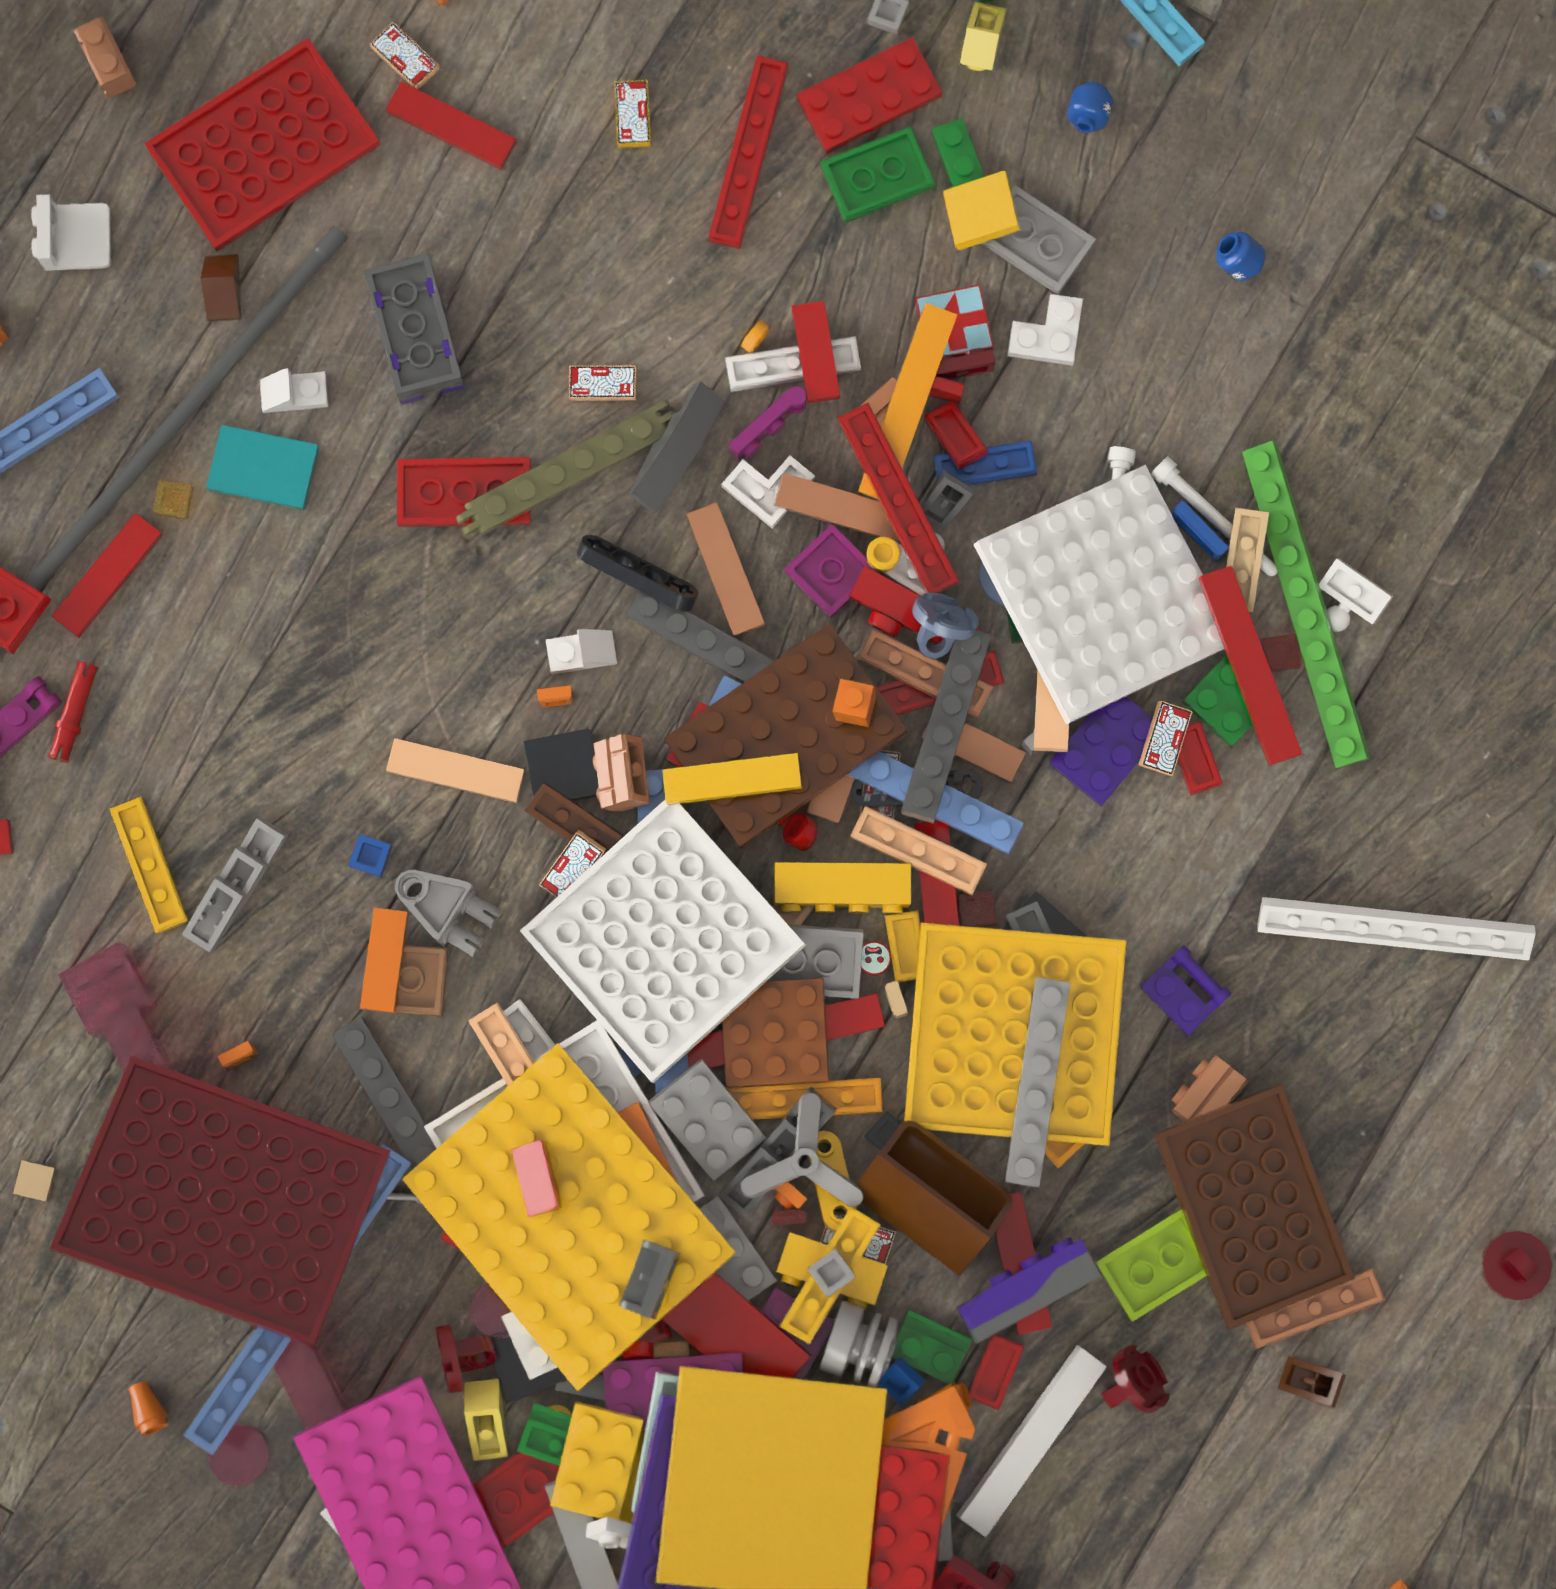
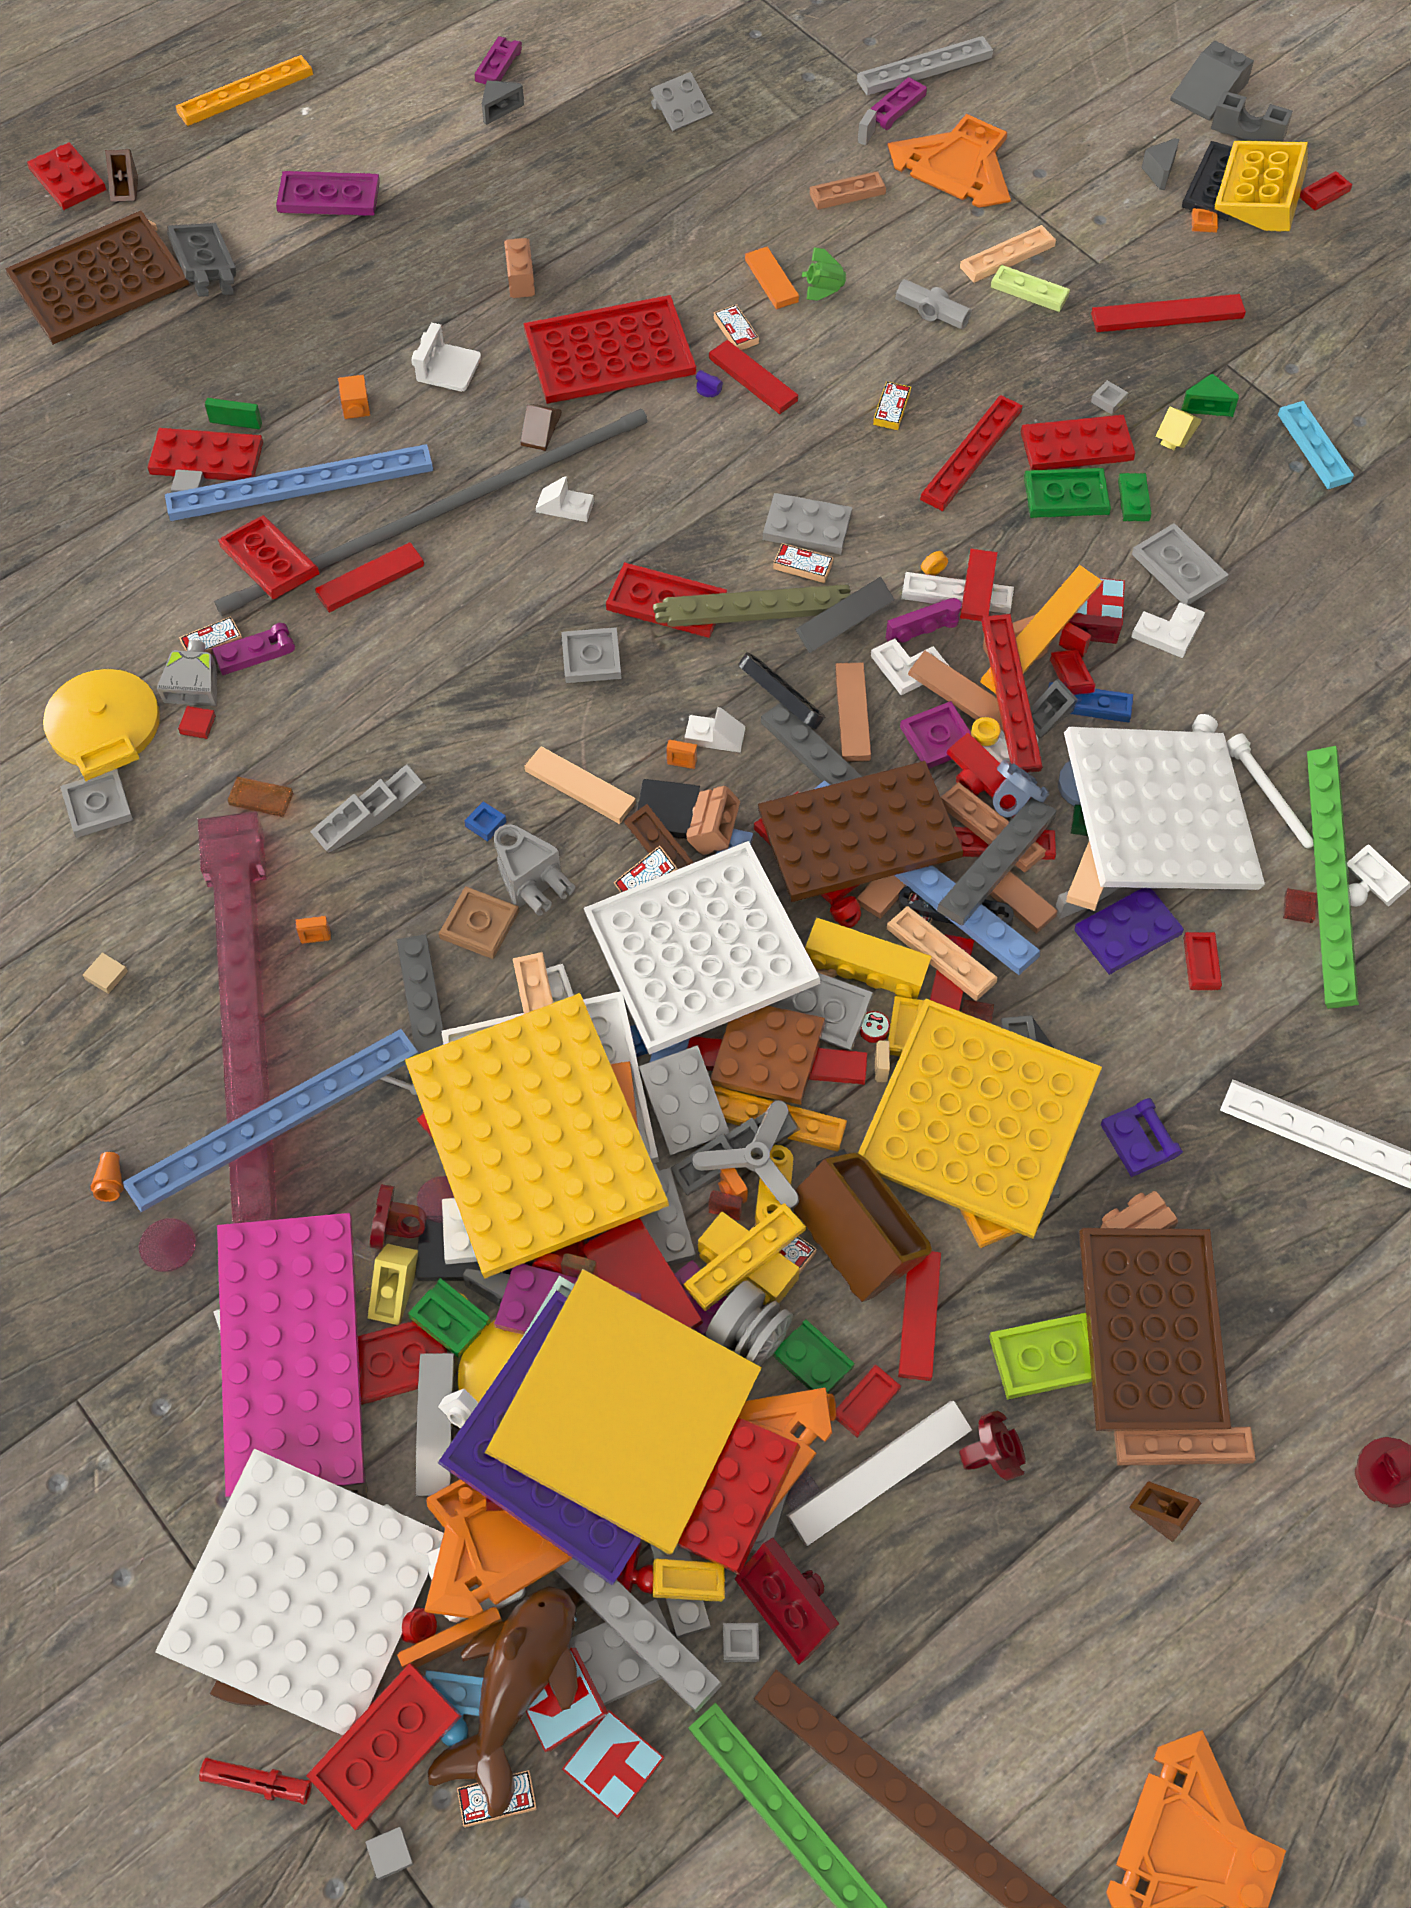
camera: 15 degrees right, 20 degrees down
(72, 712) = (292, 662): red pin -> none
(106, 908) = (260, 796): none -> clear orange tile
(149, 865) = (307, 777): yellow tile -> none
(173, 500) = (442, 542): clear yellow plate -> none
(221, 1201) = (245, 1017): dark red plate -> none
(262, 467) = (519, 543): teal tile -> none
(384, 960) = (463, 896): orange tile -> none
(402, 159) = (708, 385): none -> dark purple plate
(405, 597) = (591, 655): none -> light grey plate
(414, 328) = (672, 483): dark grey piece -> none
(536, 1178) = (519, 1086): slope -> none
(588, 324) = (807, 523): none -> light grey plate
(597, 1461) = (475, 1342): yellow plate -> none
(649, 1279) = (584, 1194): dark grey hinge -> none
(732, 779) = (803, 841): yellow tile -> none
(831, 1273) = (747, 1250): light grey tile -> none
(854, 703) = (926, 810): orange brick -> none
(901, 1381) = (777, 1375): blue plate -> none
(981, 210) = (1142, 531): yellow tile -> none
(1028, 1290) = (922, 1326): piece -> none
(1037, 1082) = (985, 1159): light grey plate -> none
(1090, 107) = (1251, 490): blue head -> none
(1165, 738) = (1181, 932): tile -> none
(1199, 531) = (1256, 795): blue tile -> none
(1220, 703) = (1245, 926): green plate -> none
(1240, 256) = (1344, 616): blue head -> none
(1247, 550) = (1288, 823): tan plate -> none
(1250, 666) = (1272, 900): red tile -> none

